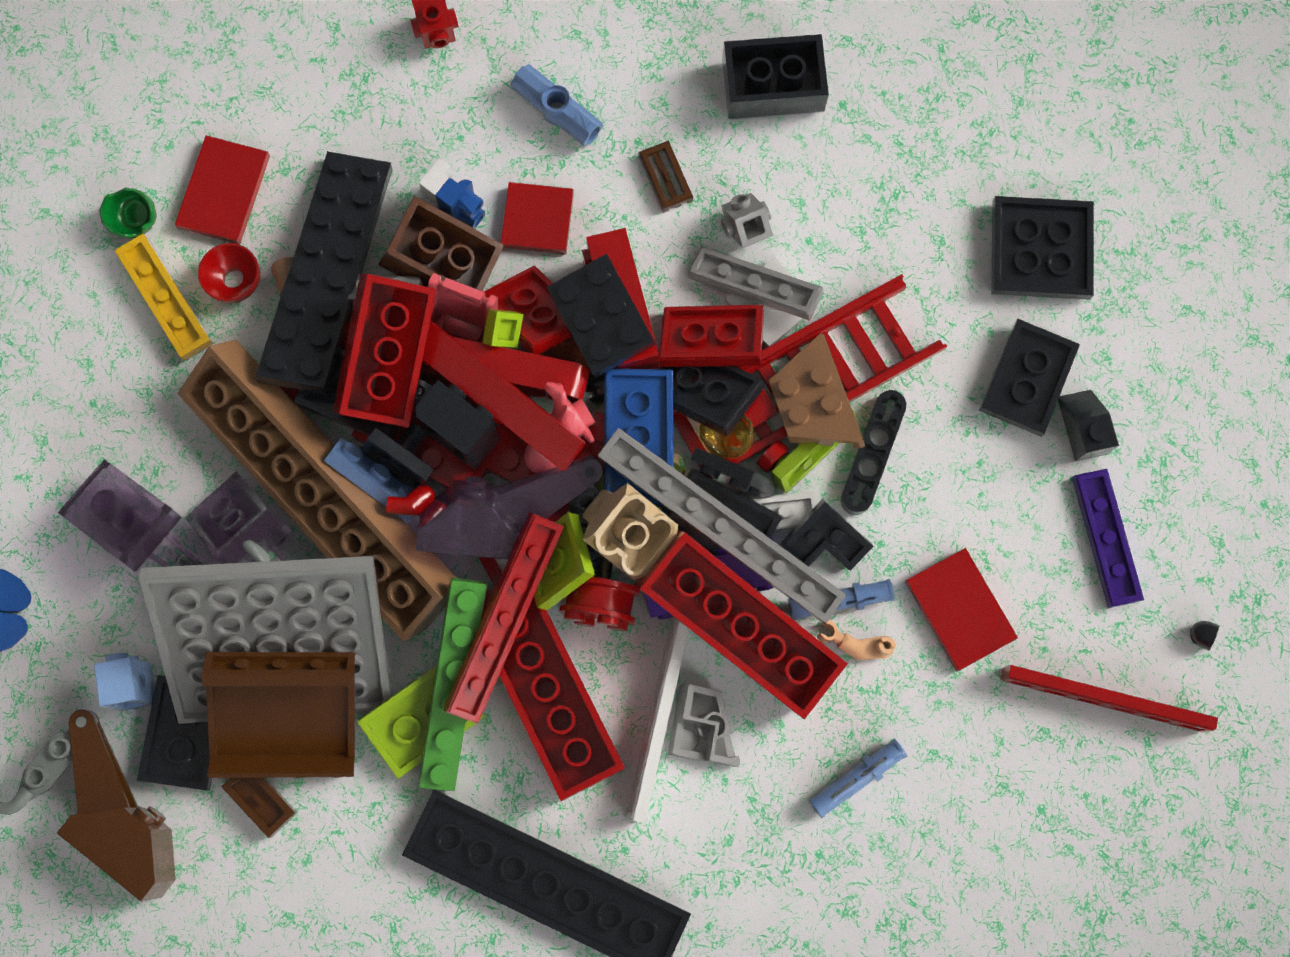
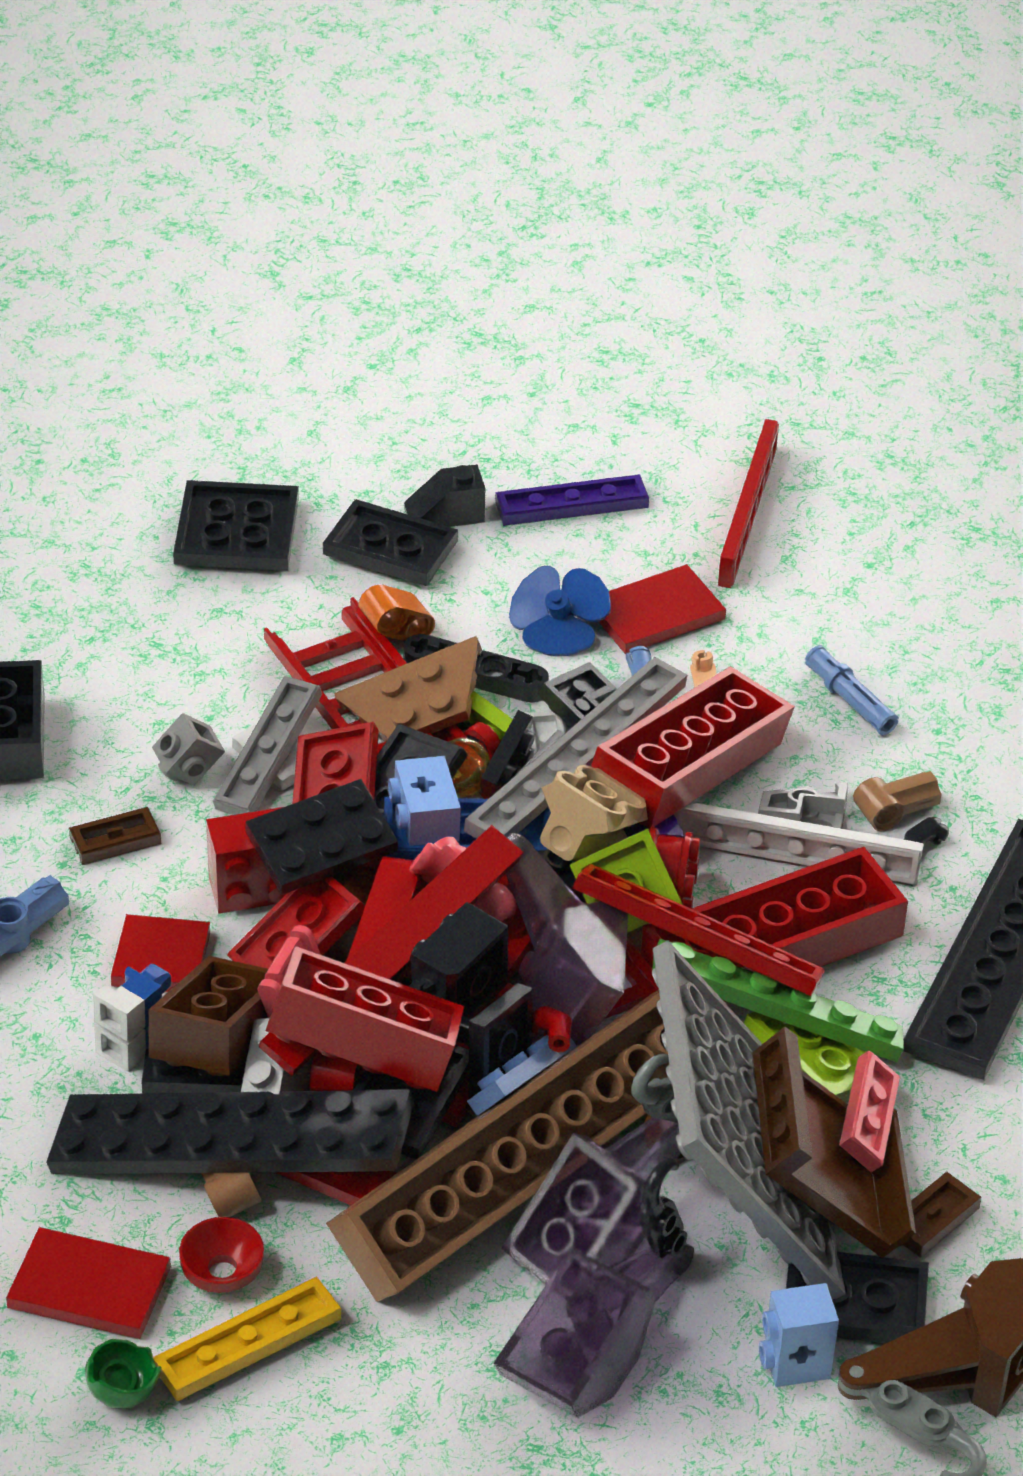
camera: 90 degrees left, 35 degrees down
(337, 752) = (869, 1111): none -> coral tile
(503, 328) = (331, 930): lime plate -> none
(634, 409) = (425, 800): none -> light blue brick
(678, 826) = (928, 829): none -> black arm
(716, 803) = (888, 802): none -> medium nougat piece
(923, 381) = (395, 612): none -> orange beam
(937, 529) = (549, 613): none -> blue piece
(1204, 634) = (675, 434): black hinge -> none

